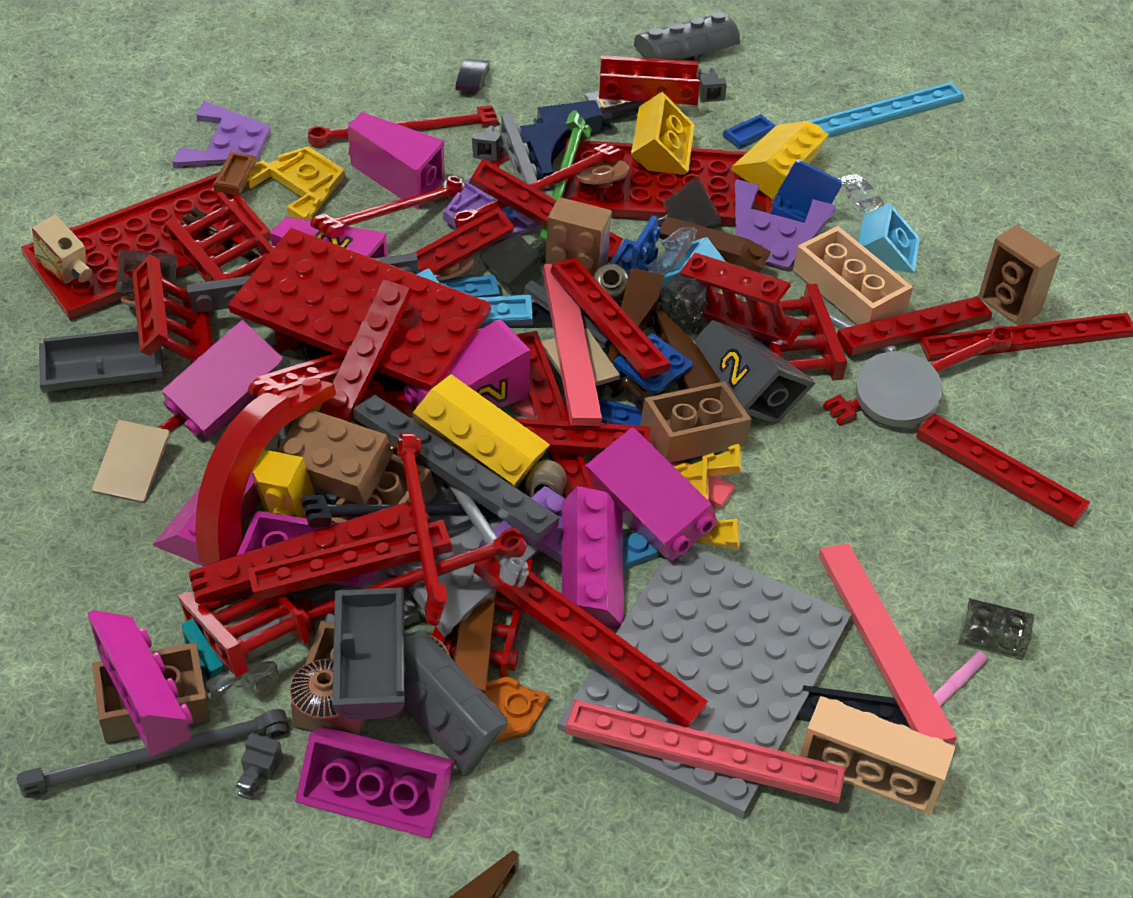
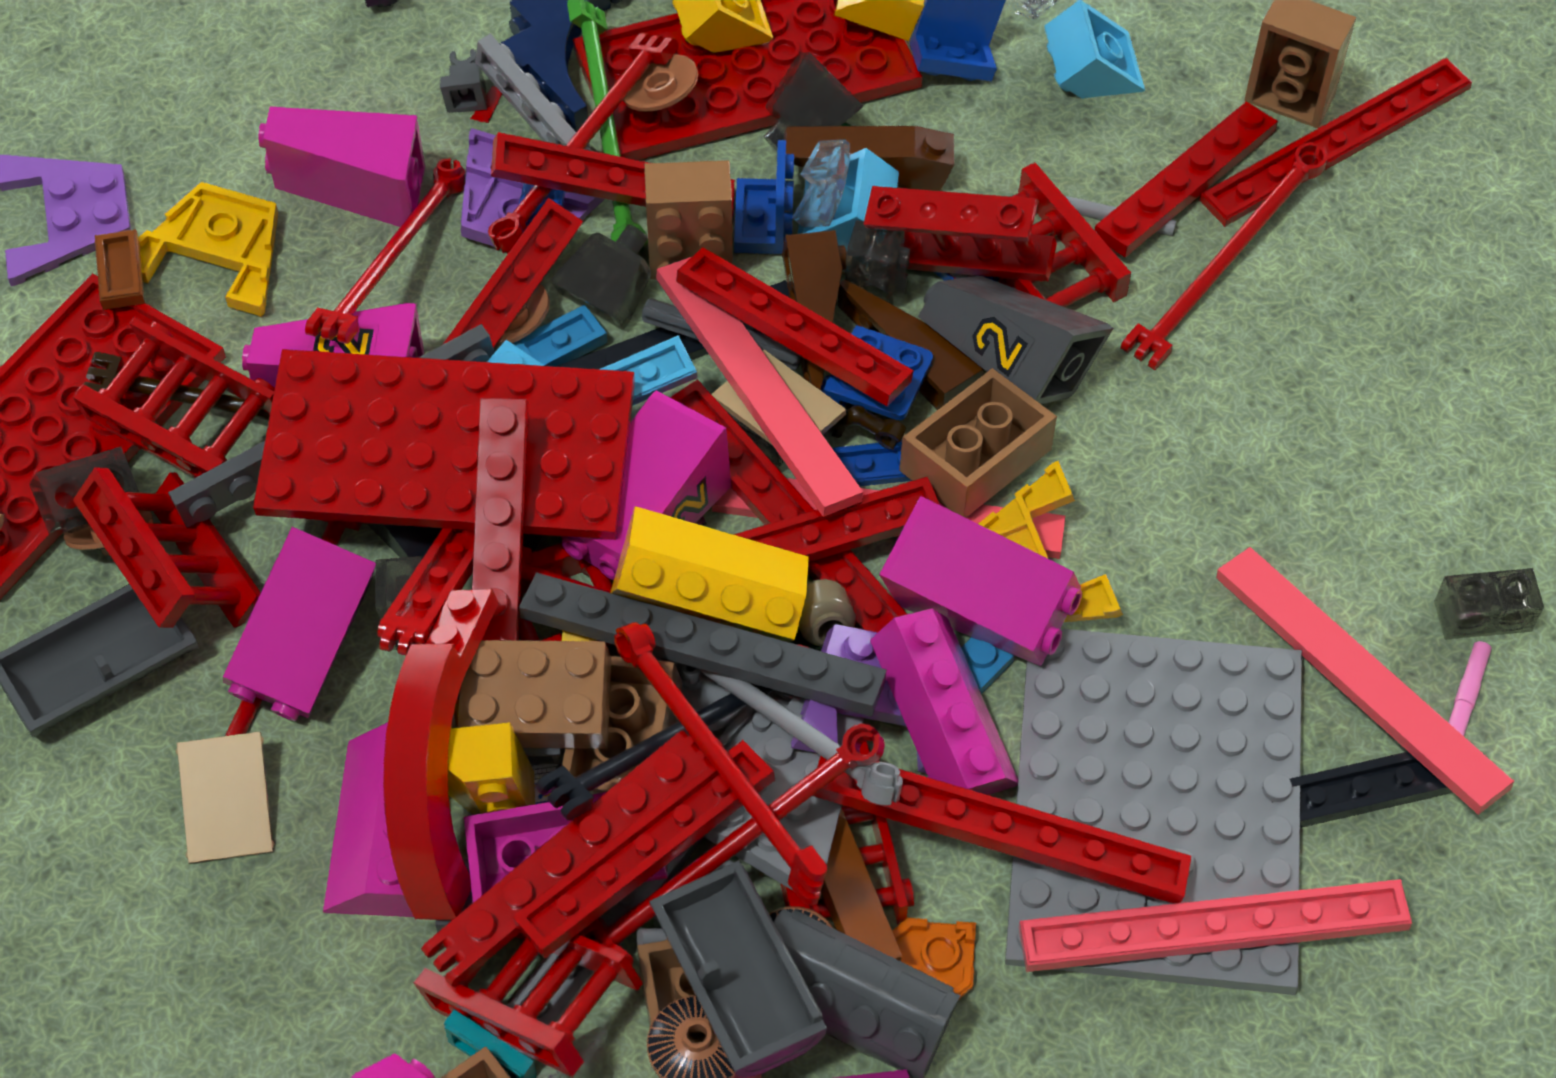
camera: 20 degrees left, 10 degrees up
(320, 136) = (429, 36): red hinge -> none
(613, 280) = (762, 250): dark tan head -> none
(776, 232) = (935, 98): medium lavender wing -> none
(852, 277) = (1075, 134): light nougat brick -> none
(879, 754) = (1431, 844): light nougat brick -> none
(898, 389) = (1214, 289): light grey piece -> none
(1003, 469) = (1392, 360): red plate -> none

